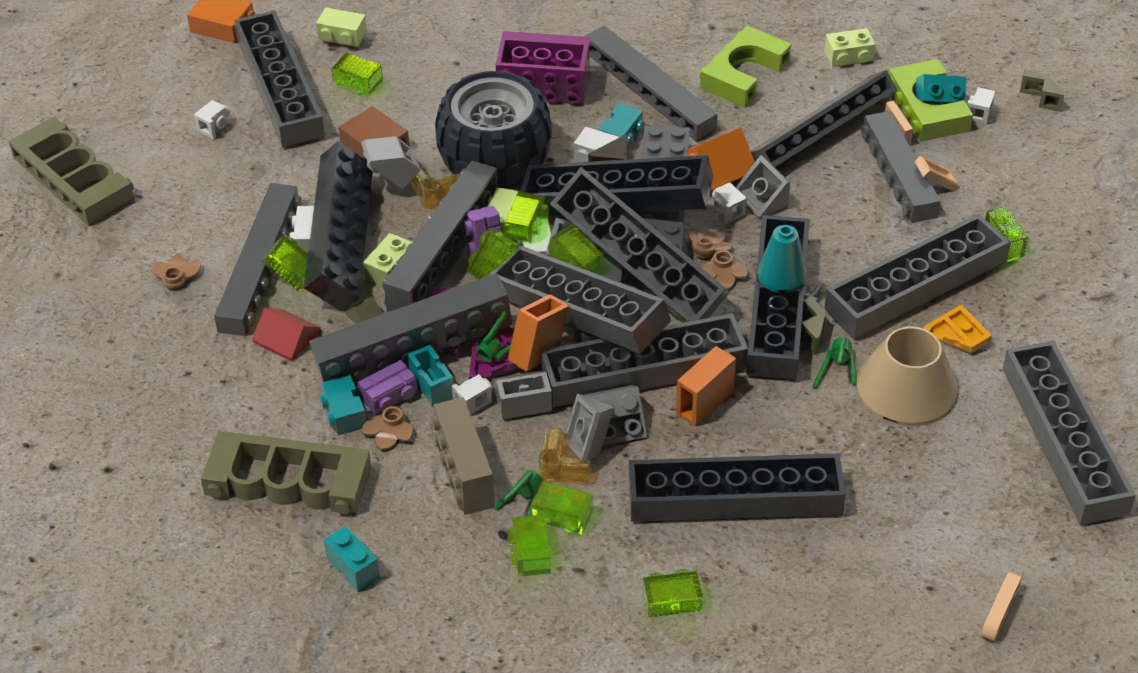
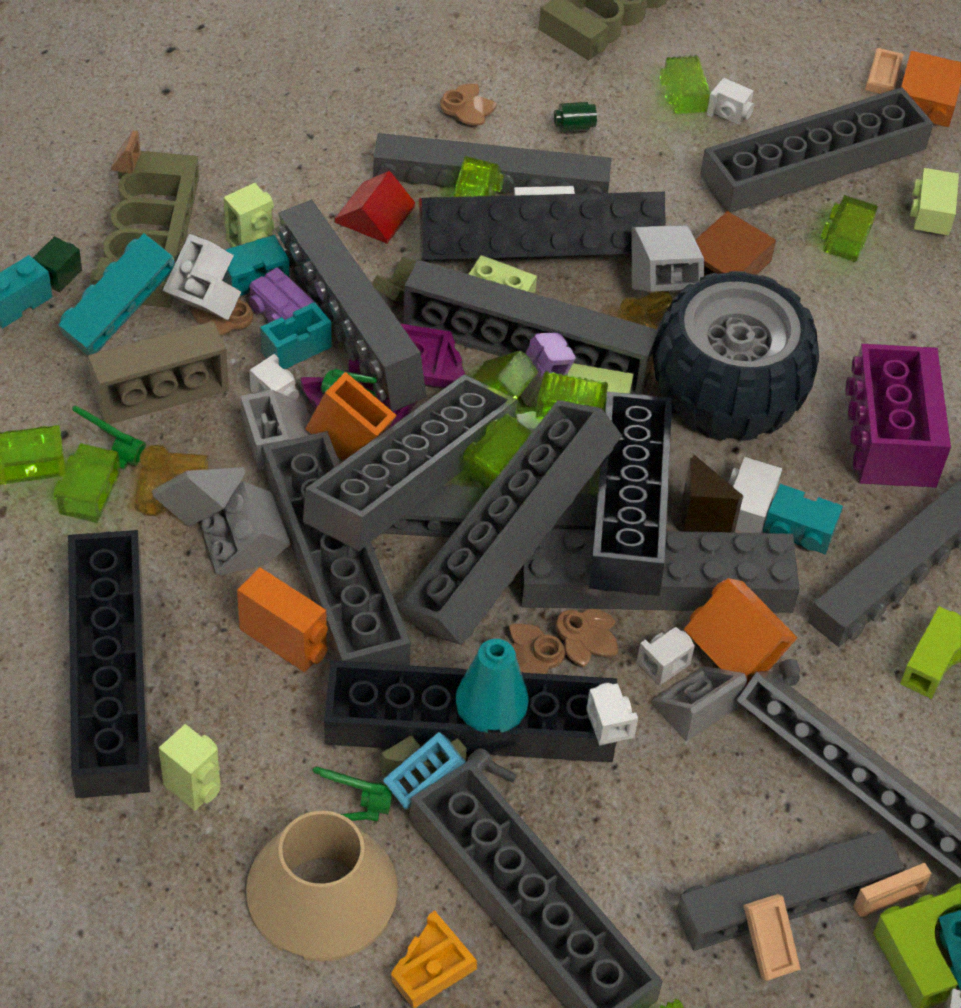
camera: 80 degrees right, 5 degrees up
(187, 141) = (685, 84): none -> clear neon green brick
(191, 39) = (884, 71): none -> light nougat tile
(209, 205) = (575, 116): none -> dark green brick
(215, 471) = (127, 154): none -> medium nougat slope
(302, 398) = (248, 215): none -> yellowish green brick
(316, 528) = (61, 261): none -> dark green brick
(371, 430) = (199, 276): none -> white brick
(380, 478) = (116, 294): none -> teal brick
(798, 212) = (611, 714): none -> white brick
(830, 432) = (190, 767): none -> yellowish green brick
(831, 297) = (416, 760): none -> medium azure slope

